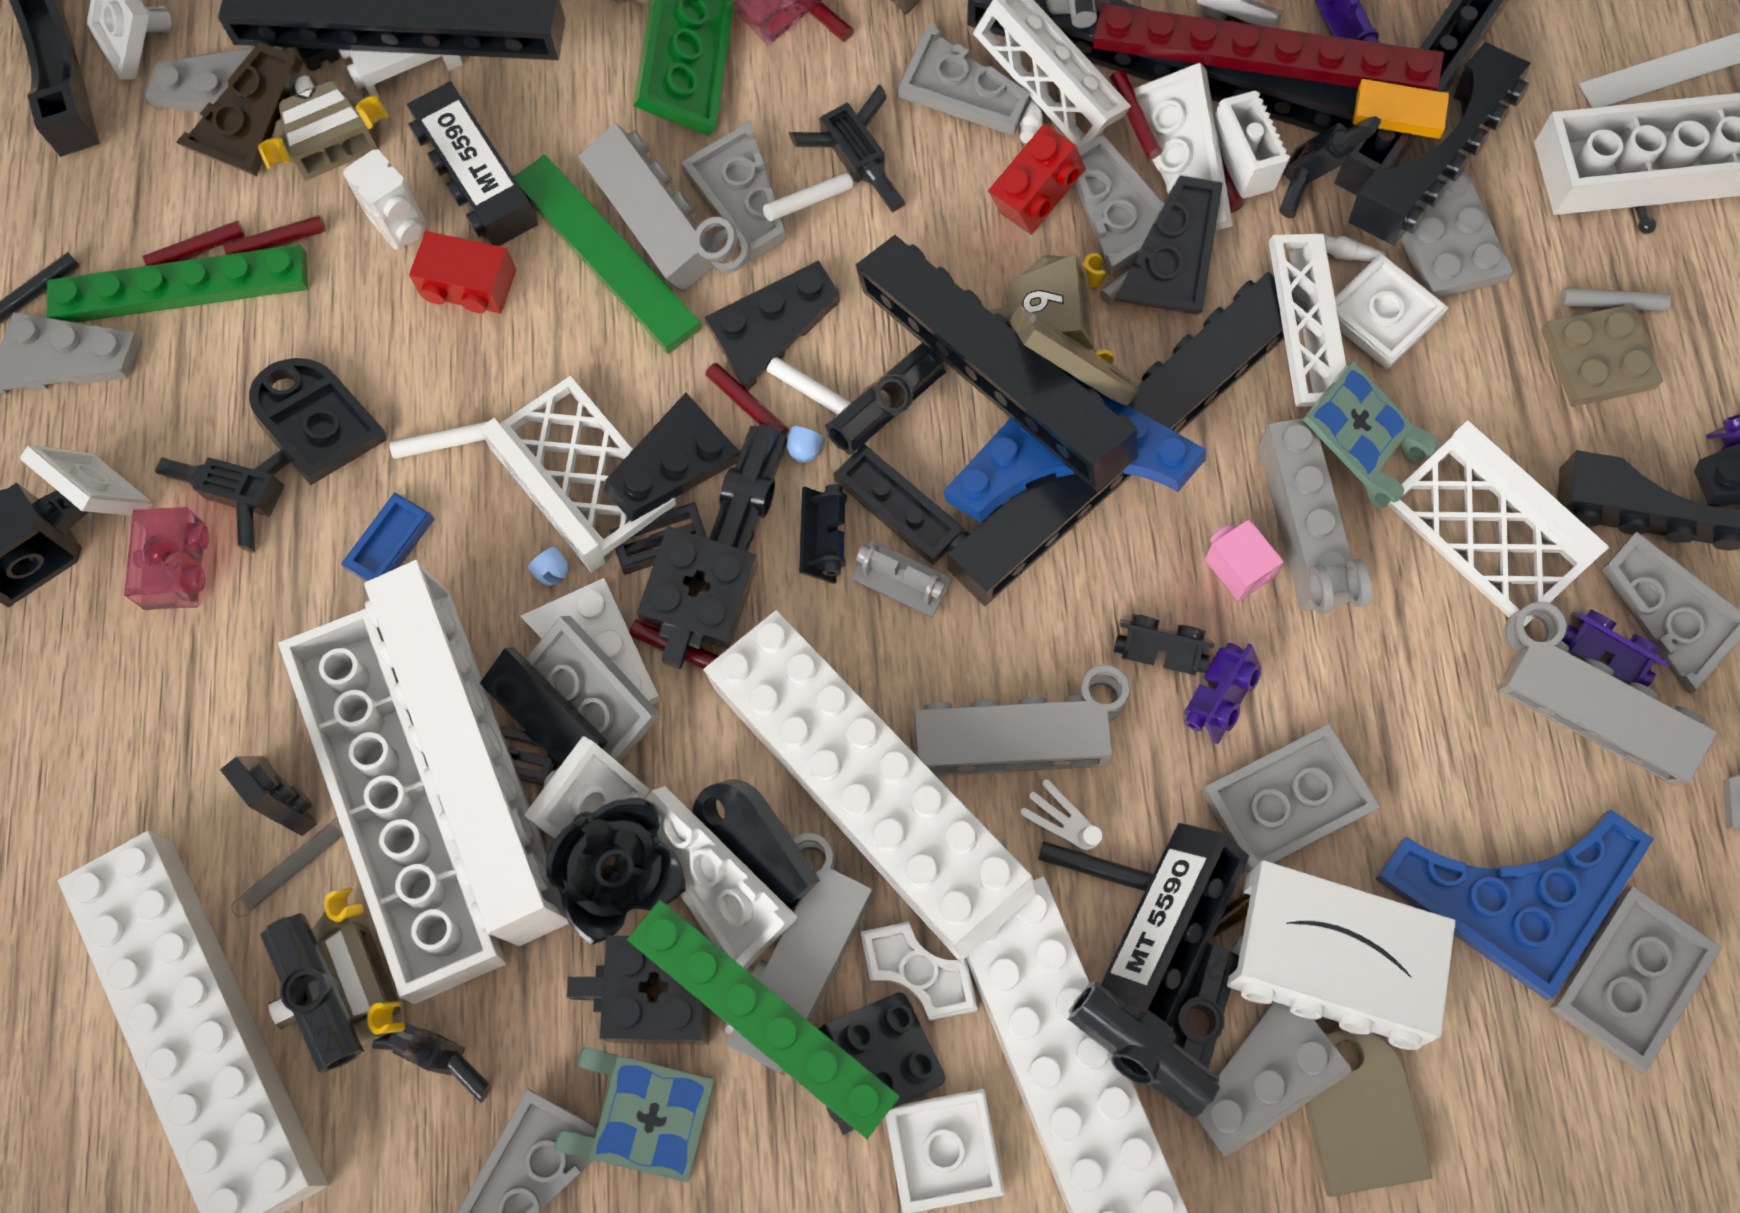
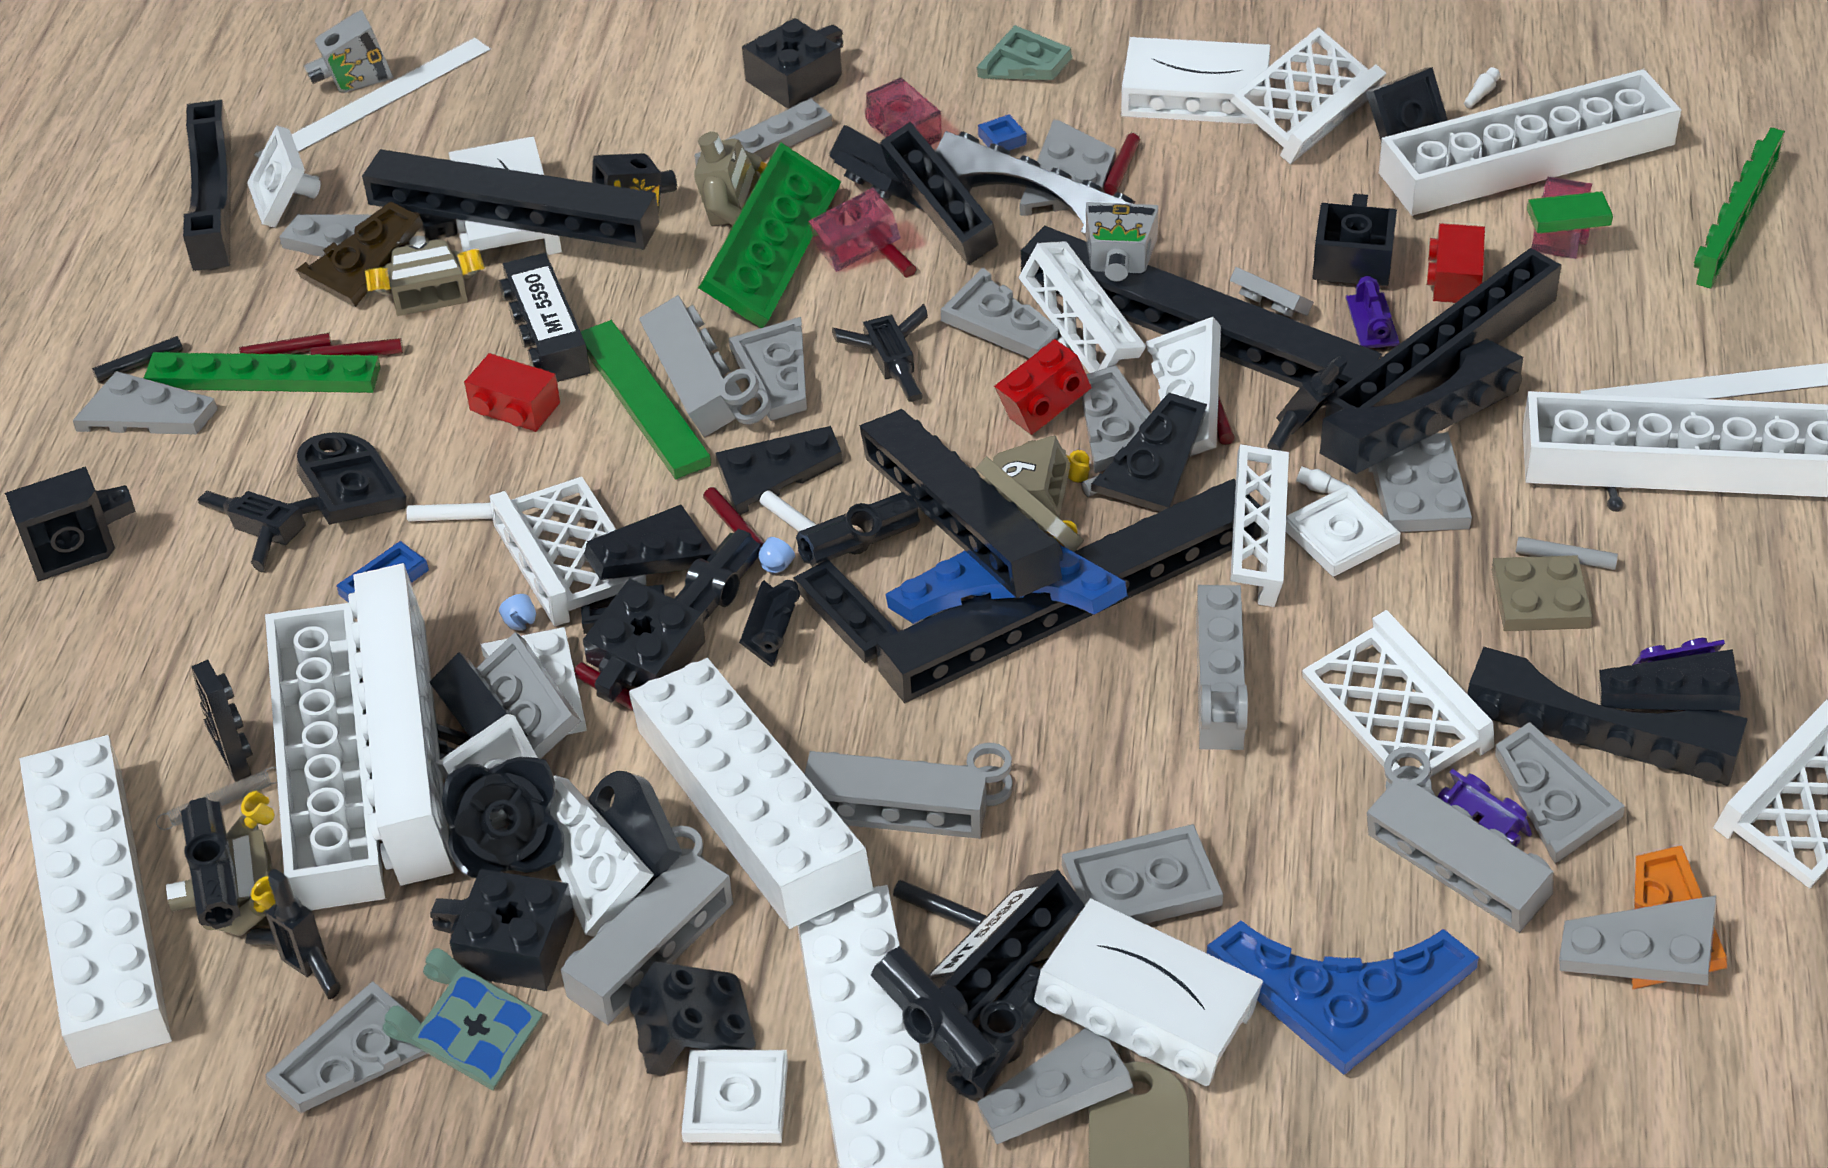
camera: 10 degrees right, 25 degrees down
(85, 480) = (140, 487): white tile -> none
(152, 540) = (186, 558): clear pink brick -> none
(386, 199) = (461, 326): white brick -> none
(764, 1019) = (600, 943): green plate -> none
(807, 197) = (835, 377): white piece -> none
(900, 578) = (831, 664): light grey hinge -> none
(938, 983) = (770, 973): white tile -> none
(1075, 829) = (935, 878): white piece -> none
(1136, 115) = (1151, 356): dark red piece -> none
(1182, 647) = (1075, 750): black hinge -> none
(1219, 709) = (1109, 792): dark purple hinge -> none
(1242, 559) = (1151, 694): bright pink brick -> none
(1250, 144) = (1246, 387): white brick -> none
(1264, 49) = (1278, 315): dark red plate -> none
(1366, 430) = (1289, 607): sand green flag -> none
(1402, 108) = (1385, 368): light orange tile -> none
(1636, 979) = (1432, 1067): light grey plate -> none

